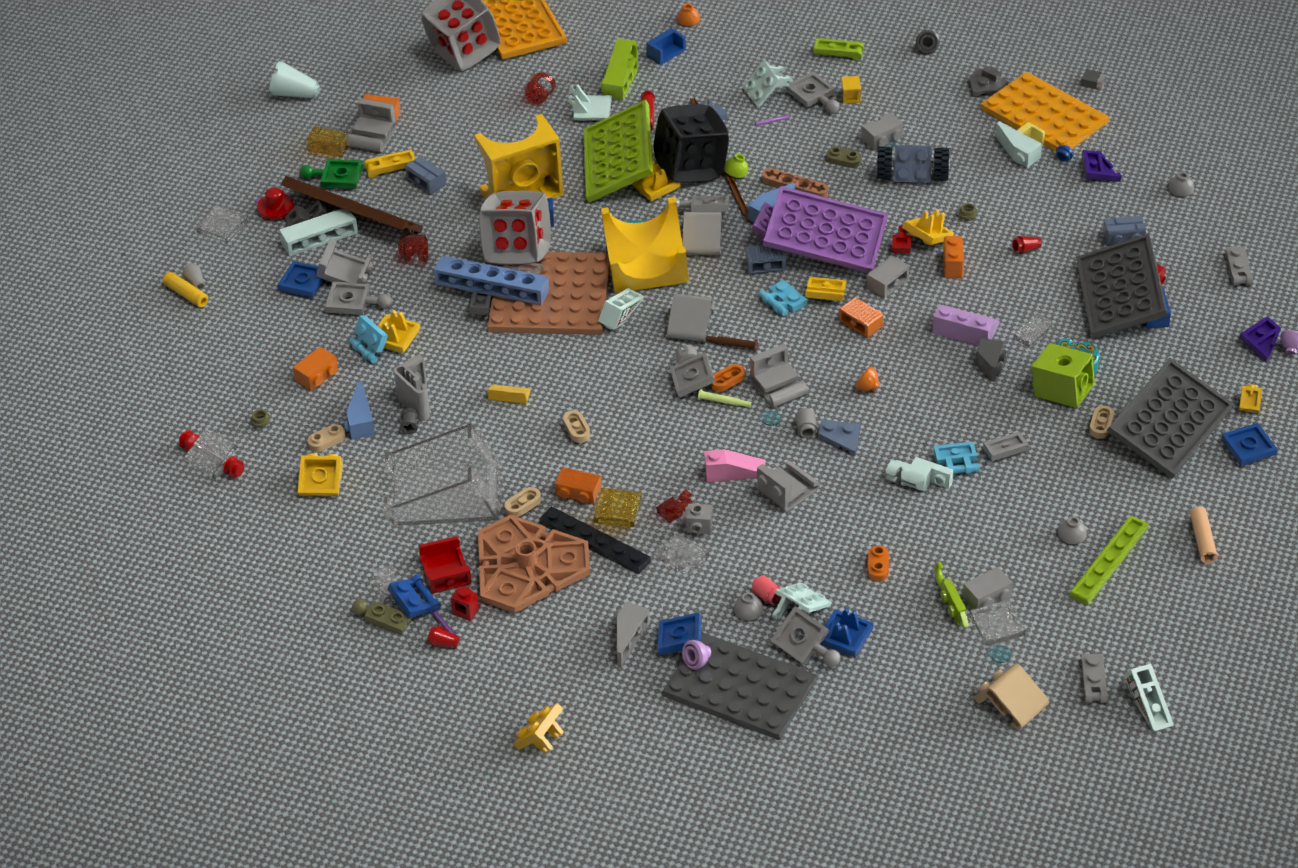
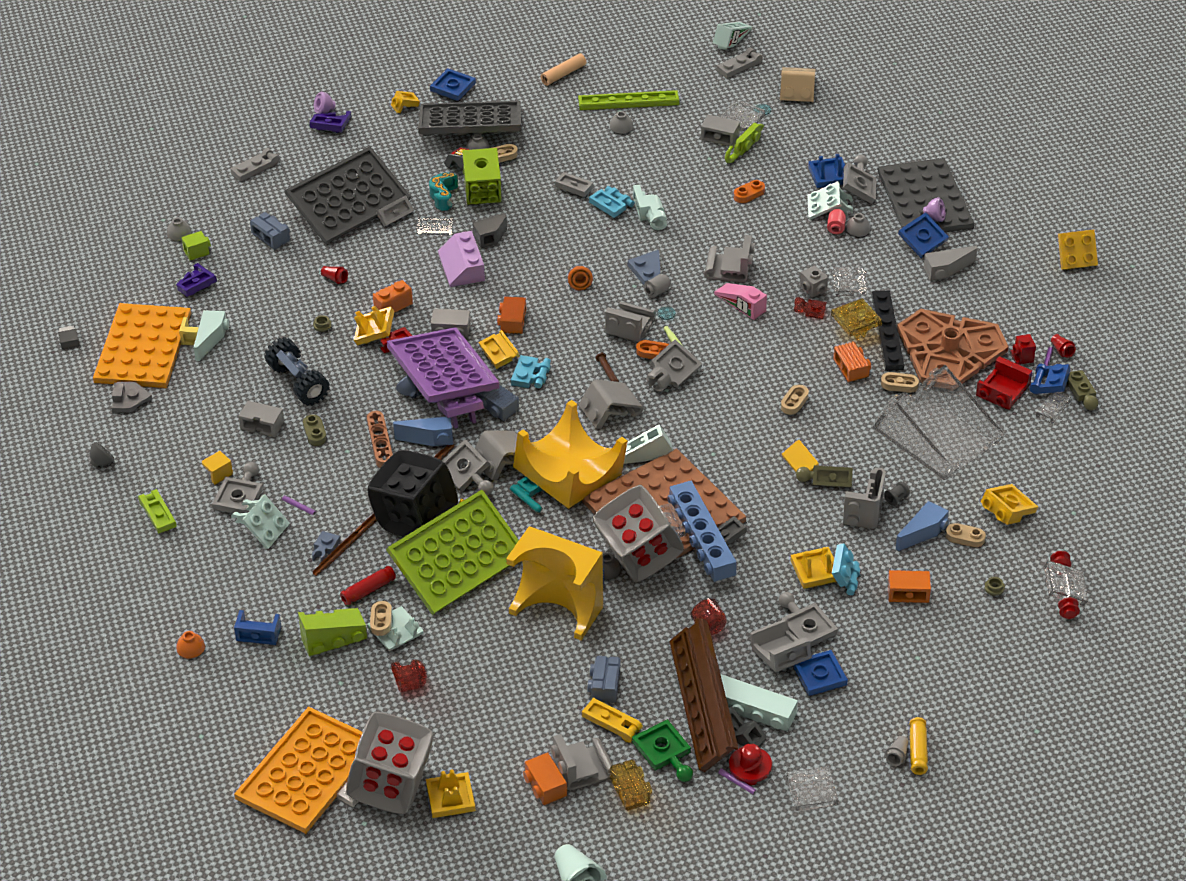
camera: 130 degrees left, 0 degrees up
(420, 66) = (450, 794): none -> yellow plate
(476, 392) = (826, 475): none -> olive plate
(602, 95) = (381, 618): none -> tan plate
(1064, 153) = (194, 305): blue plate -> none
(1078, 314) = (394, 211): none -> light grey plate
(1110, 381) = (455, 157): none -> dark grey slope
(1145, 182) = (196, 245): none -> lime brick

